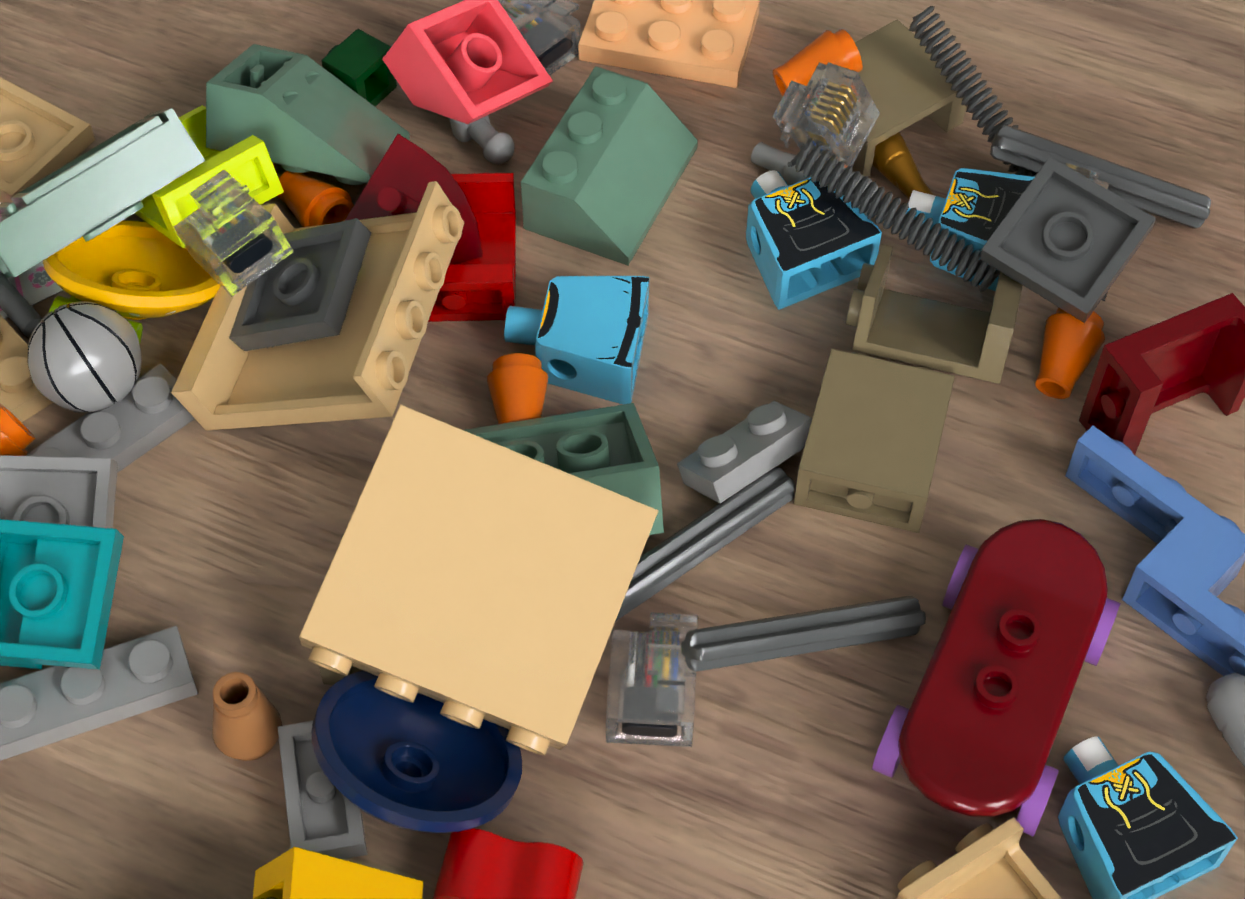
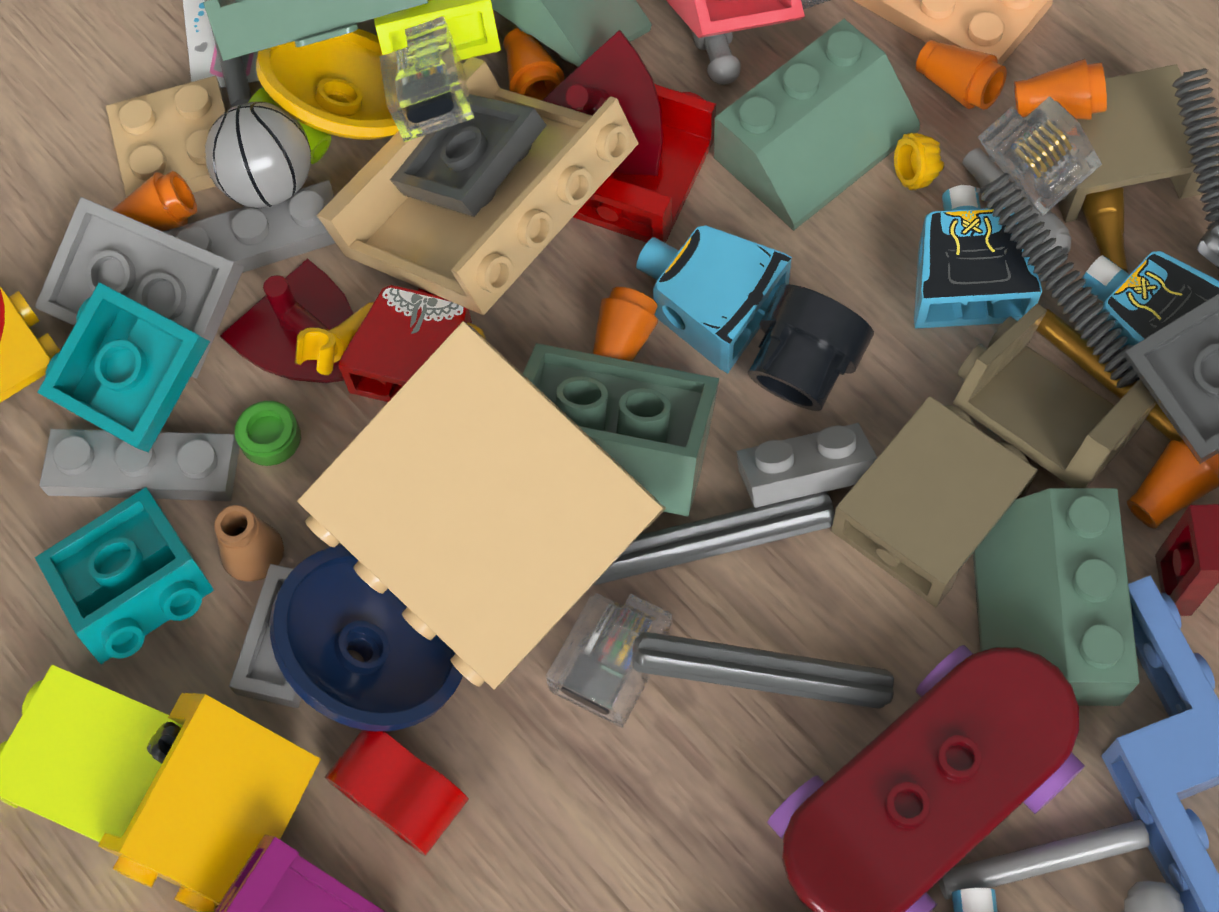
camera: 30 degrees right, 10 degrees up
(128, 798) = (124, 577): none -> teal plate
(194, 510) = (291, 304): none -> dark red shield
(208, 615) = (267, 433): none -> bright green tile
(304, 483) = (384, 340): none -> red torso
(700, 347) = (807, 346): none -> black piece
(712, 169) = (917, 160): none -> yellow piece
(714, 86) = (963, 73): none -> orange cone
(946, 282) = (1072, 345): none -> pearl gold bar
(1019, 458) = (1060, 588): none -> sand green slope
(1126, 697) = (1046, 858): none -> light grey bar

